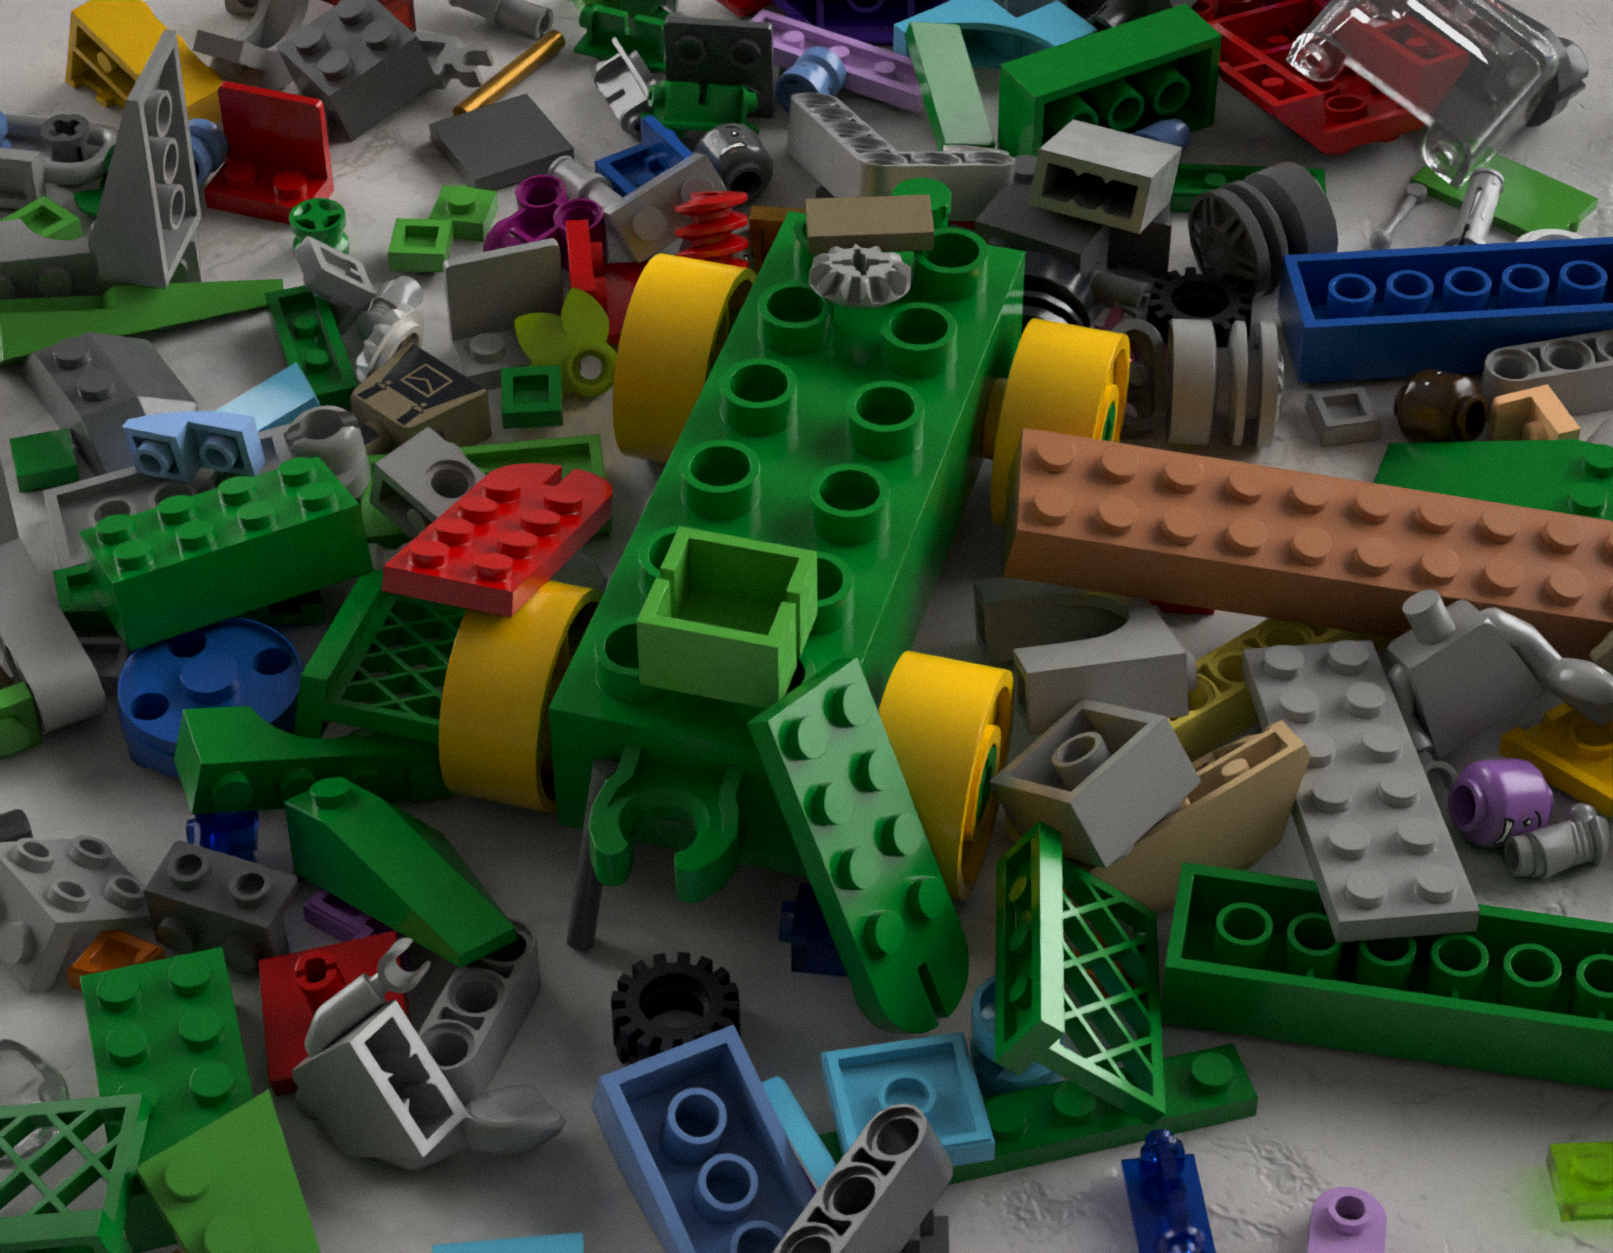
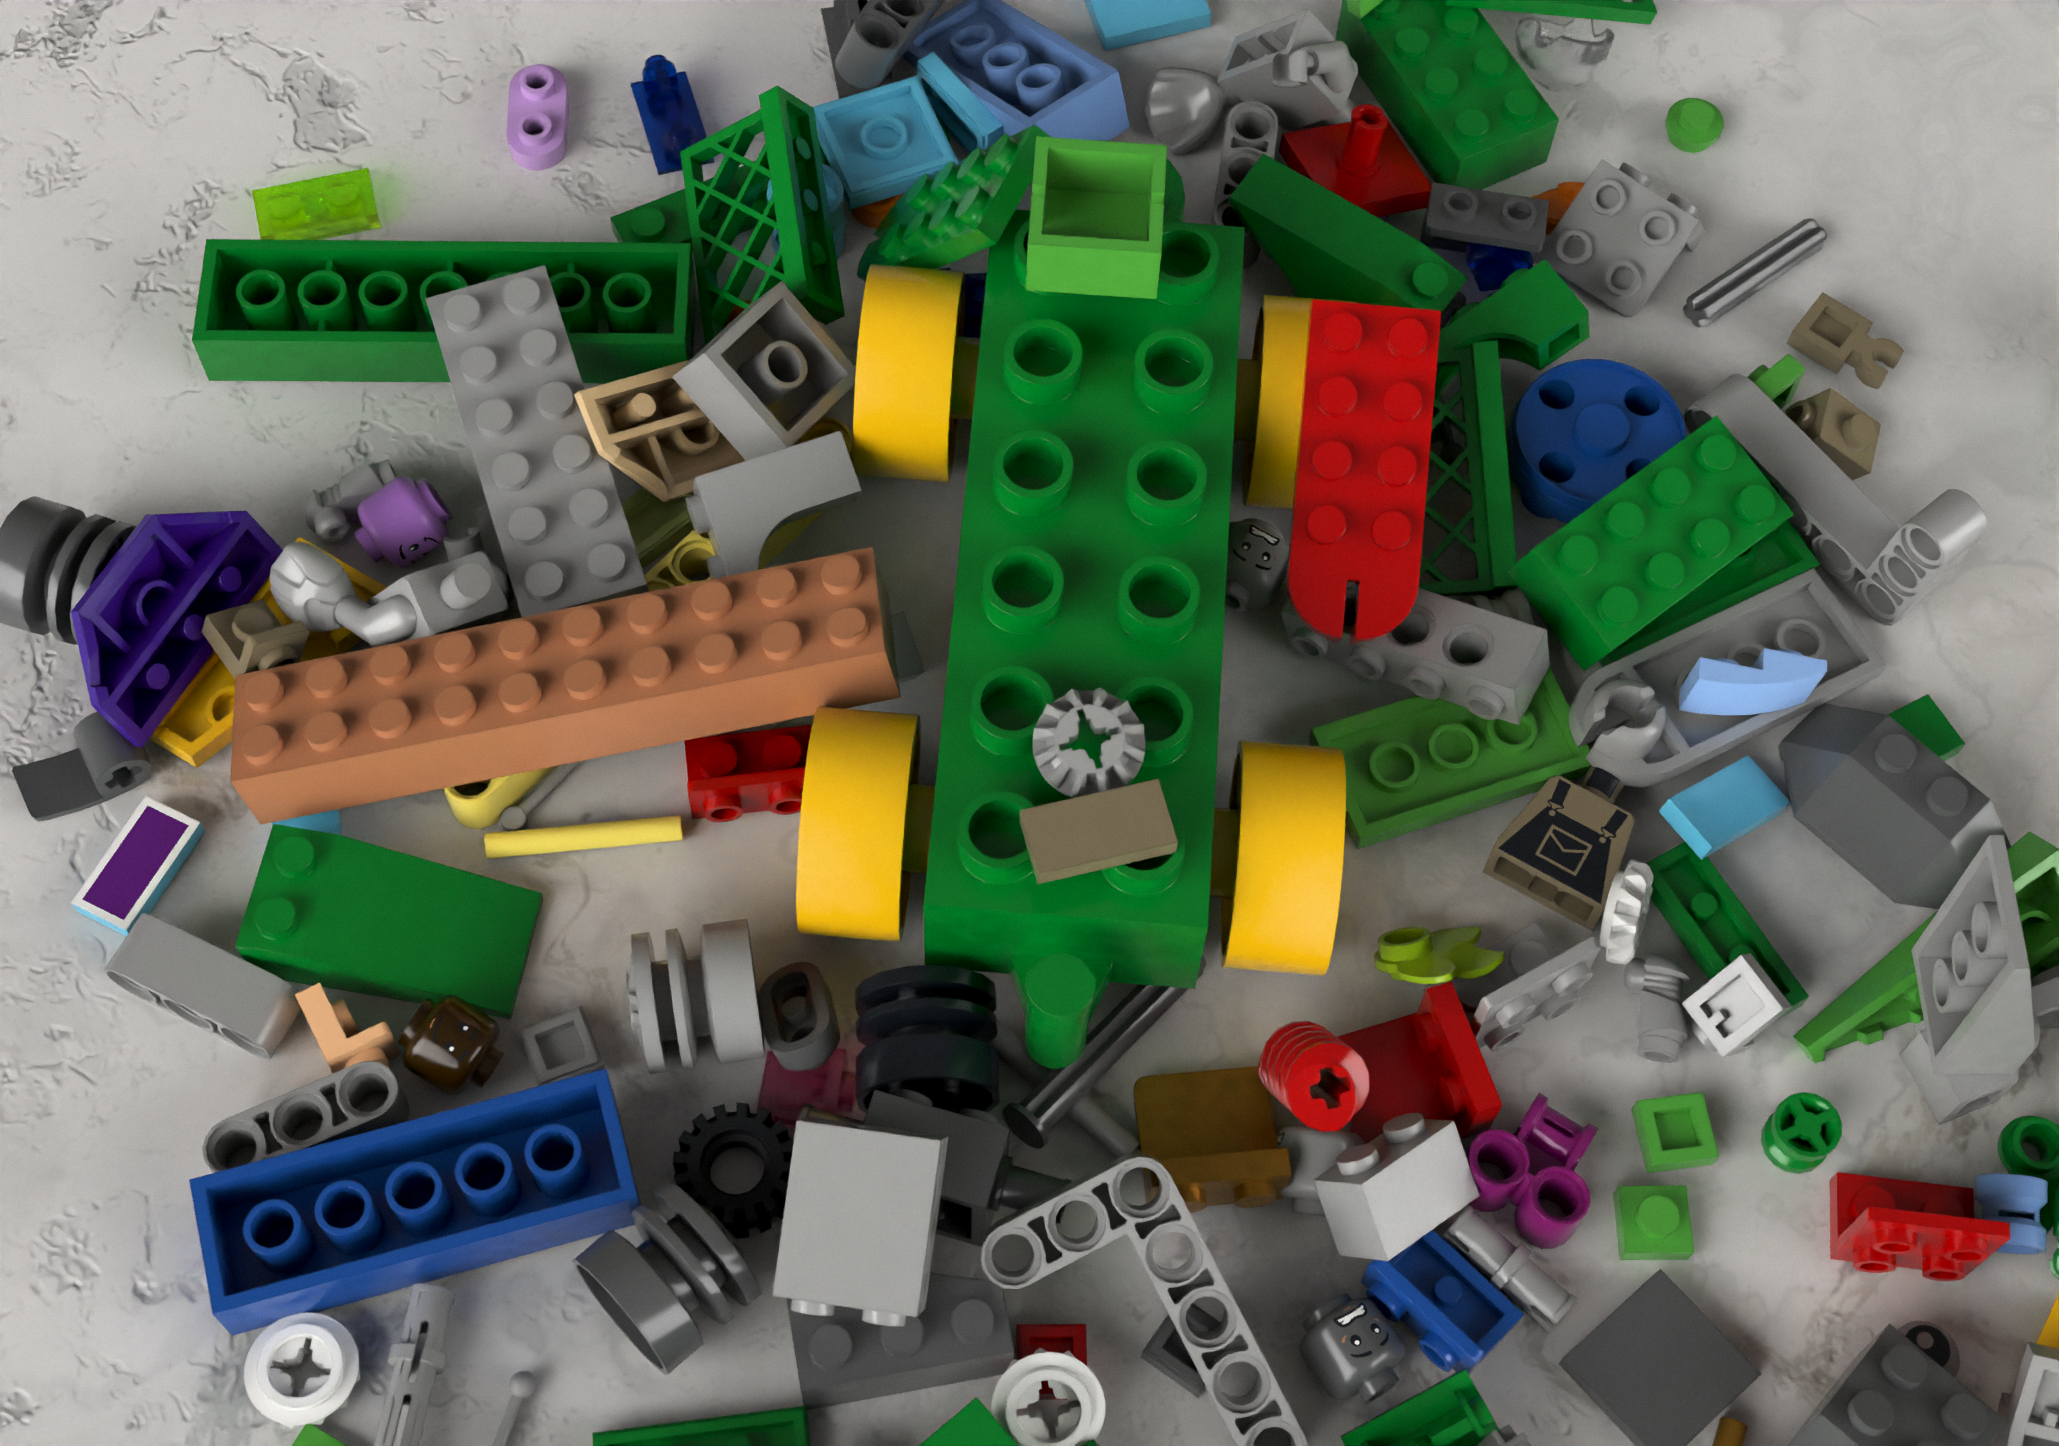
camera: 165 degrees right, 20 degrees up
(531, 396) = (1453, 897): green plate -> none

